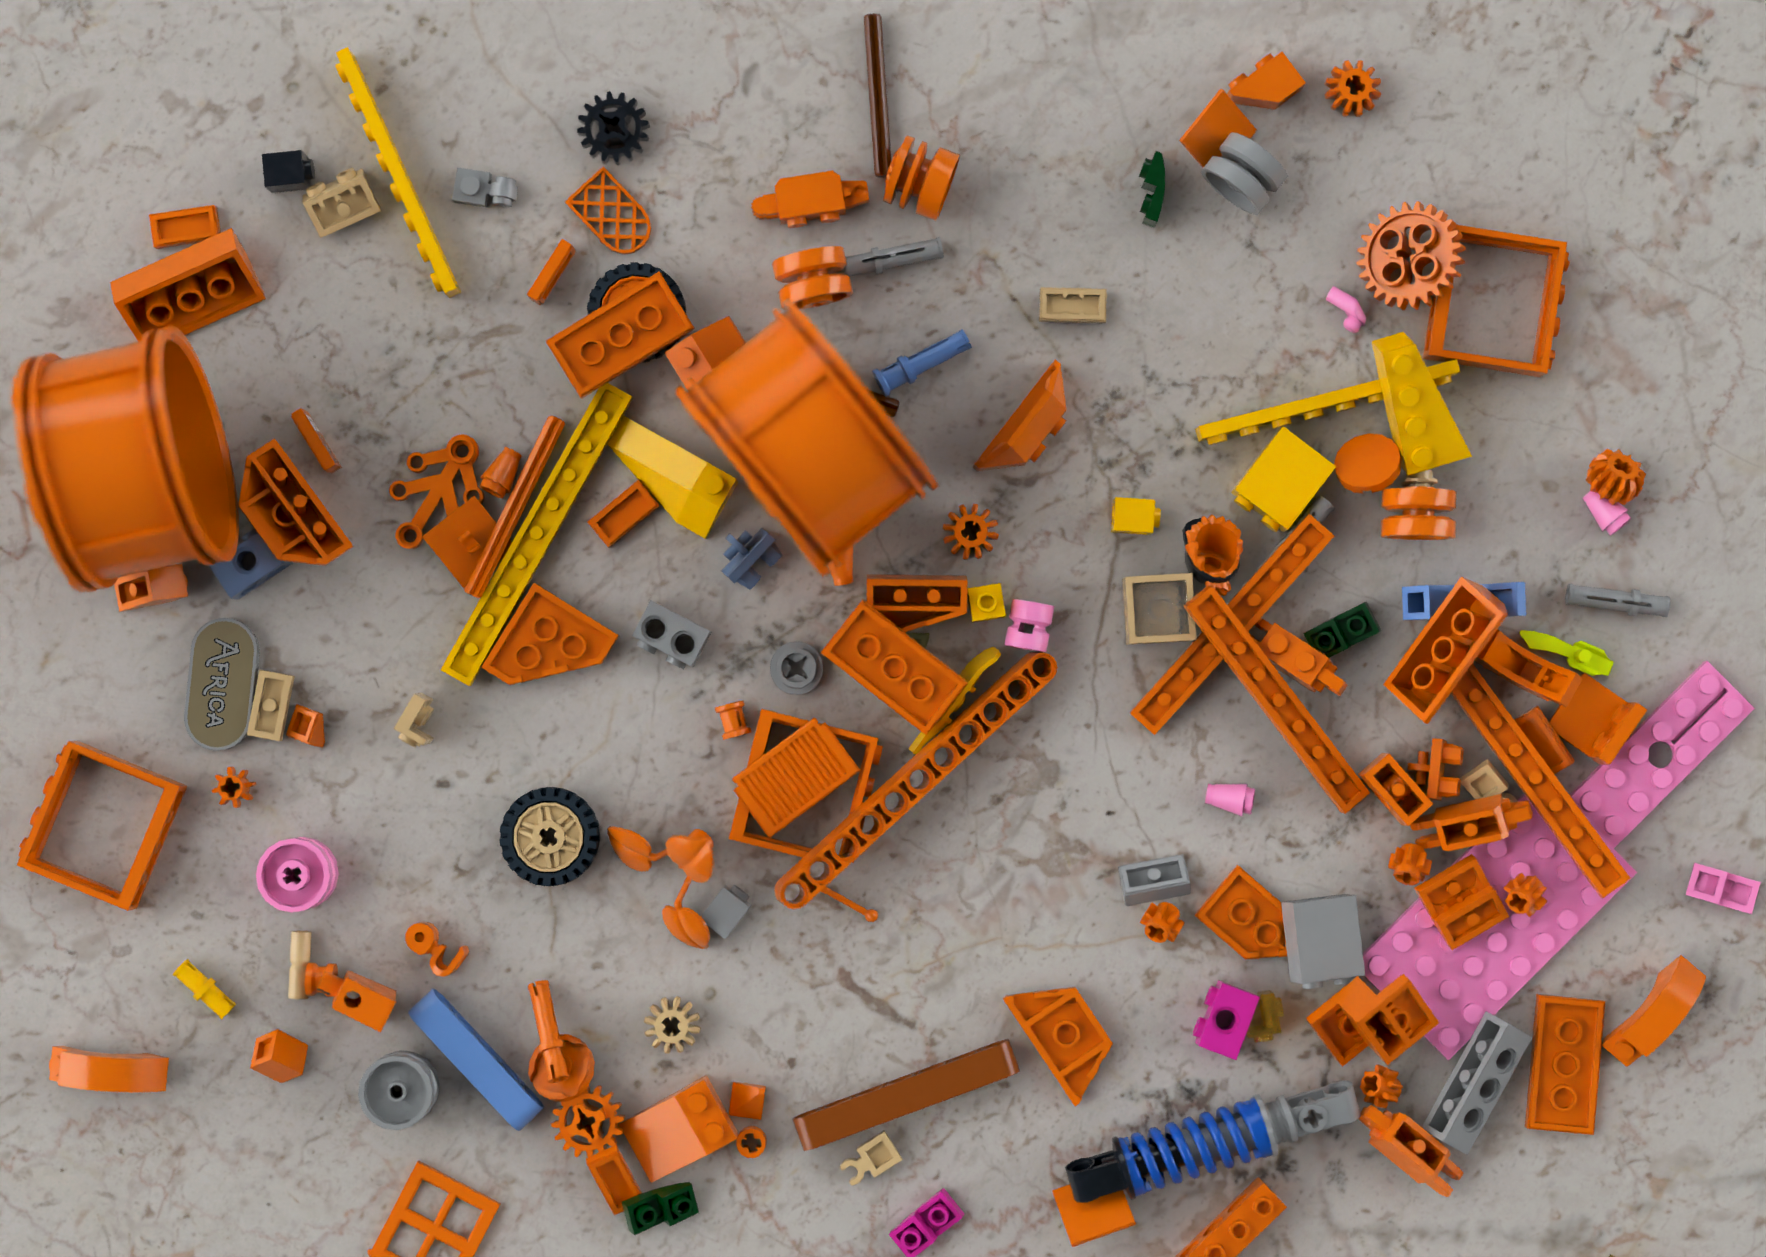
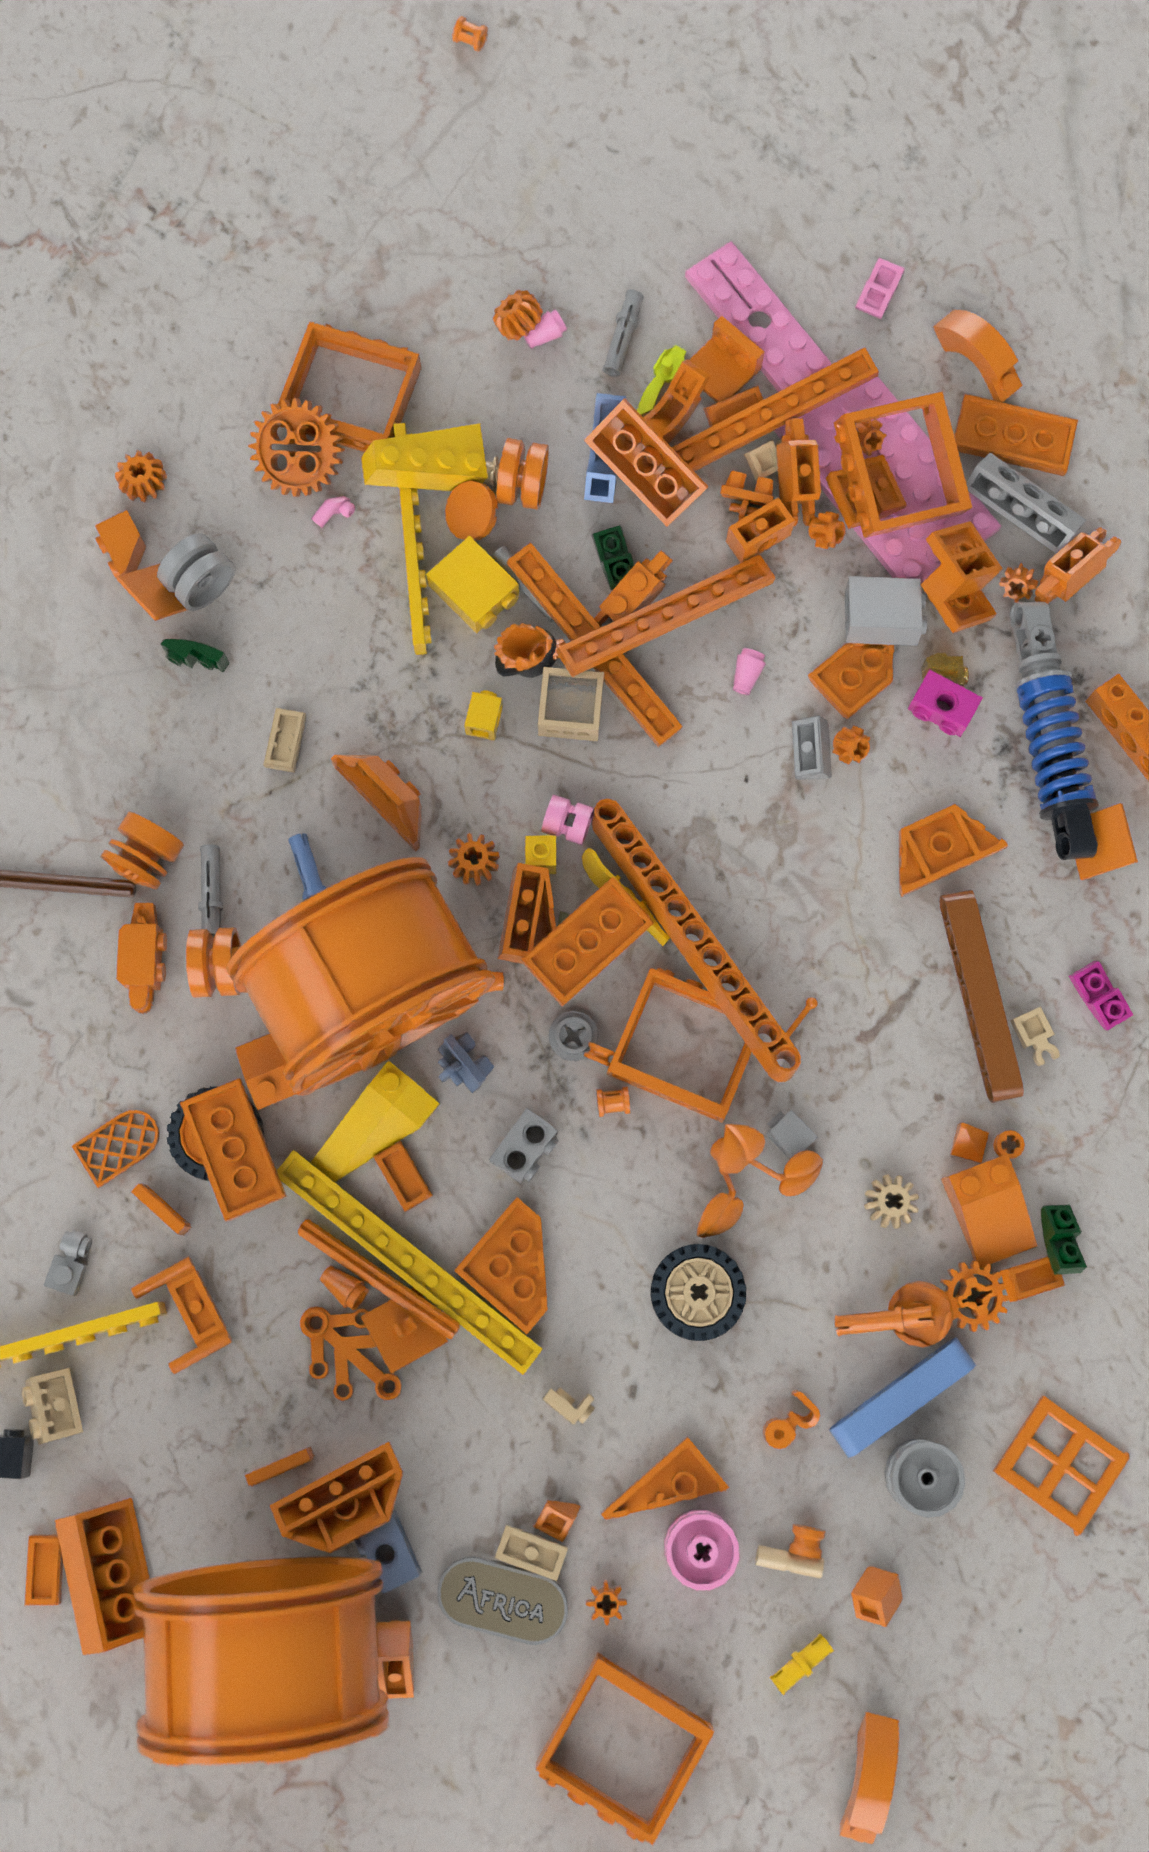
camera: 85 degrees left, 10 degrees down
(364, 840) = (675, 1478): none -> orange wing
(372, 1005) = (841, 1492): orange torso -> none
(459, 325) = (195, 1308): none -> orange plate
(622, 117) = (26, 1136): black gear -> none
(779, 697) = (598, 1053): none -> orange bush
(794, 776) = (675, 1049): orange window -> none
(1508, 987) = (945, 455): none -> orange window

